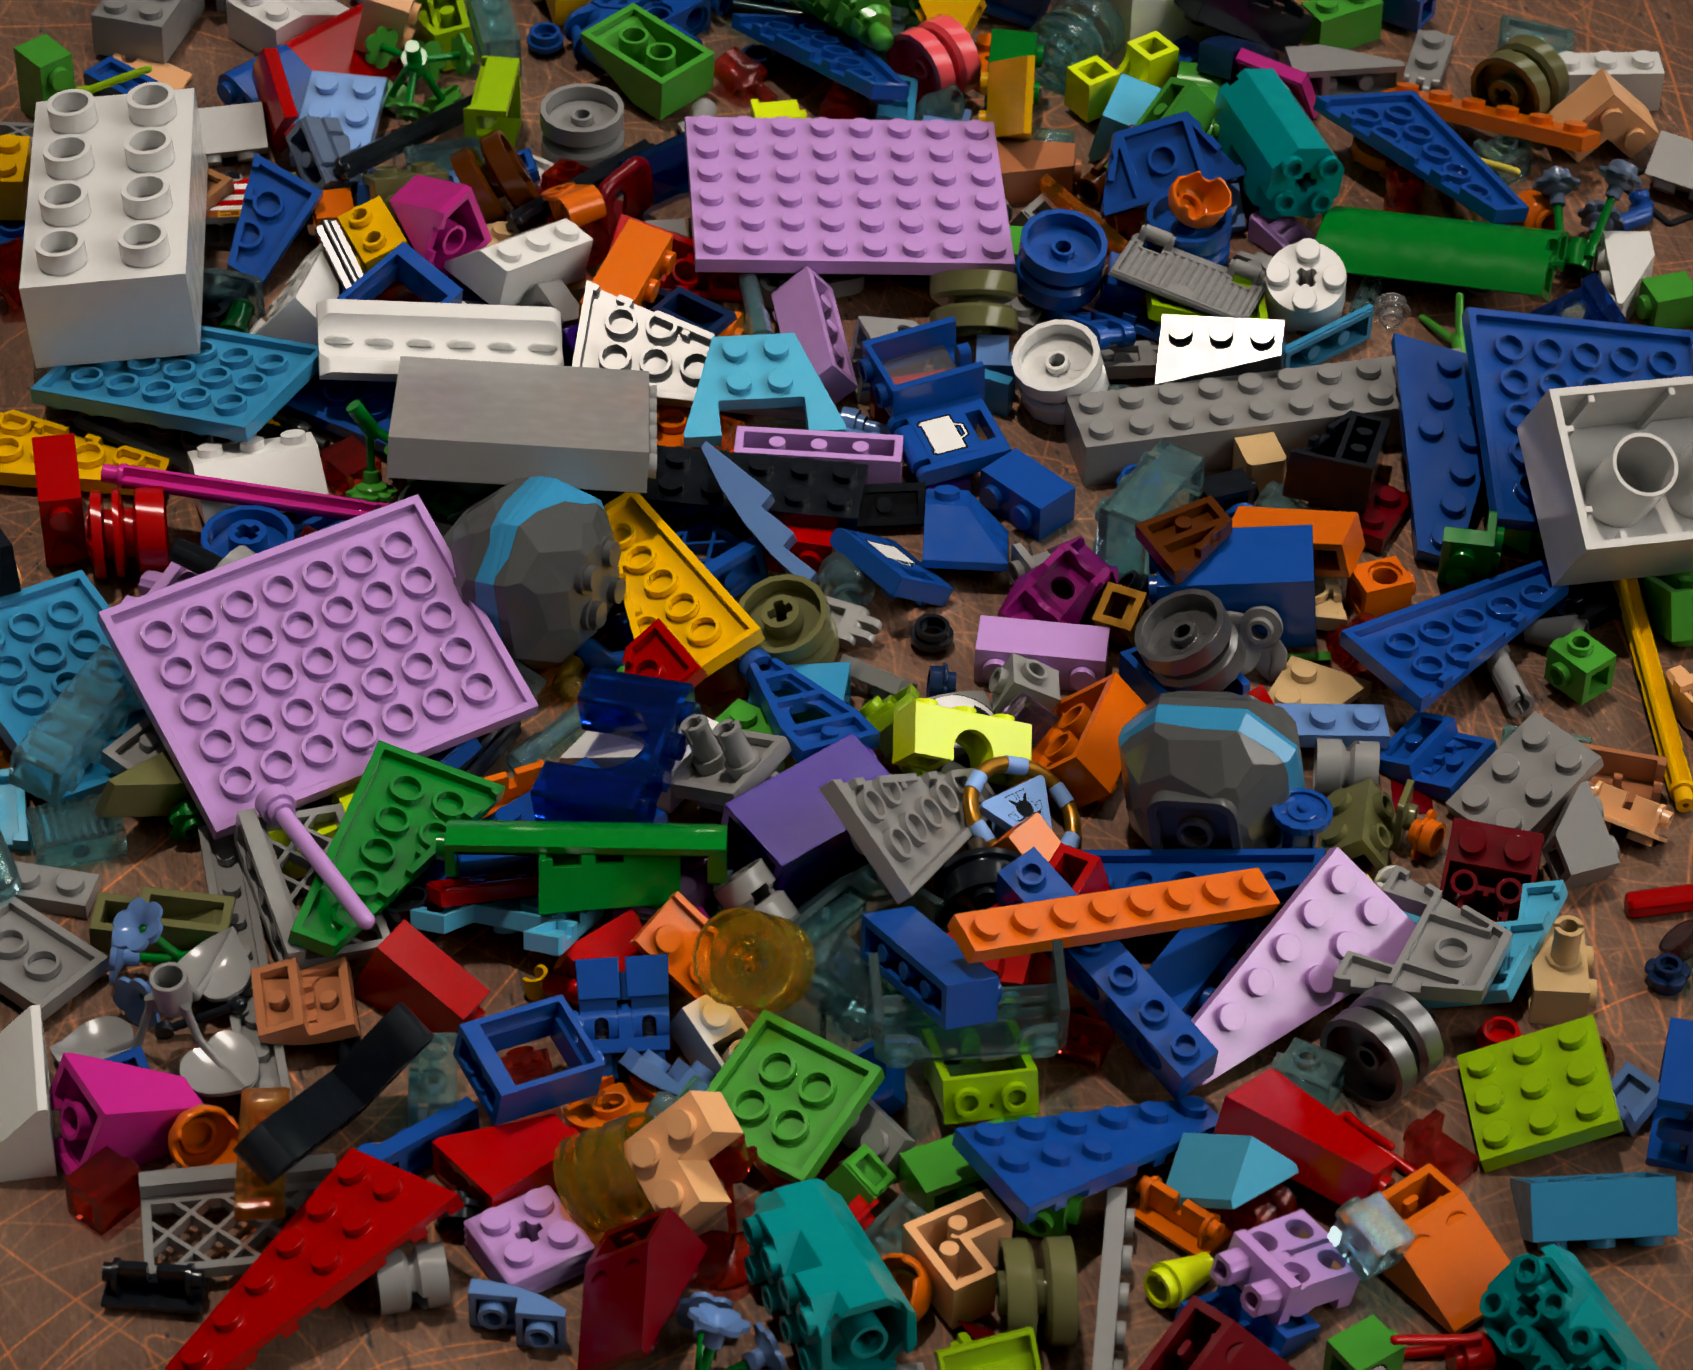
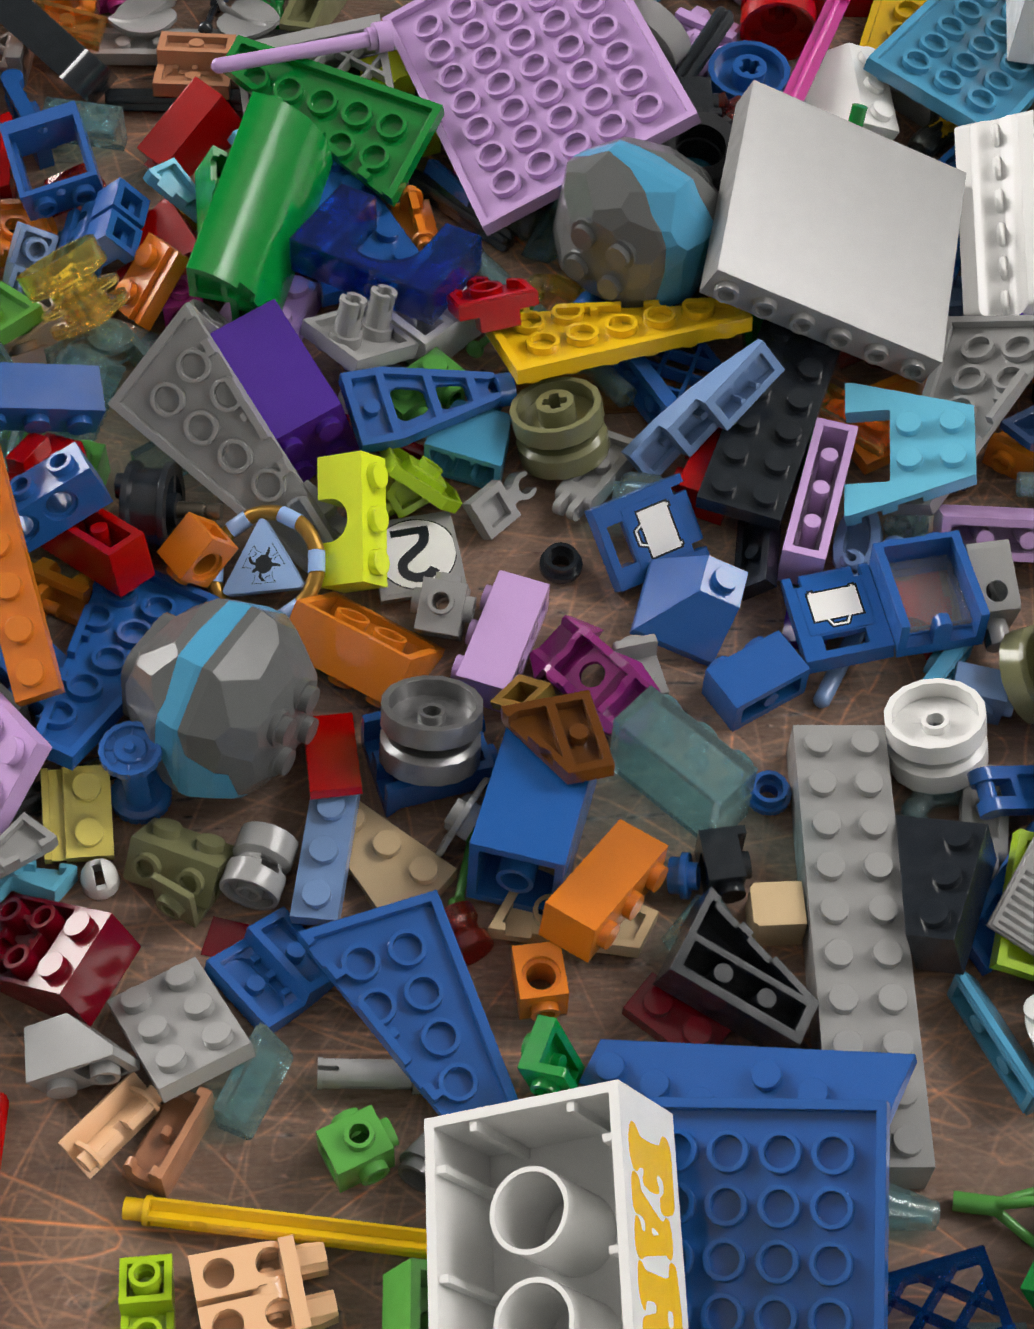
camera: 100 degrees right, 15 degrees up
(940, 680) = (485, 554): dark blue plate -> none
(1030, 711) = (397, 600): slope -> none
(1426, 835) = (146, 919): orange plate -> none

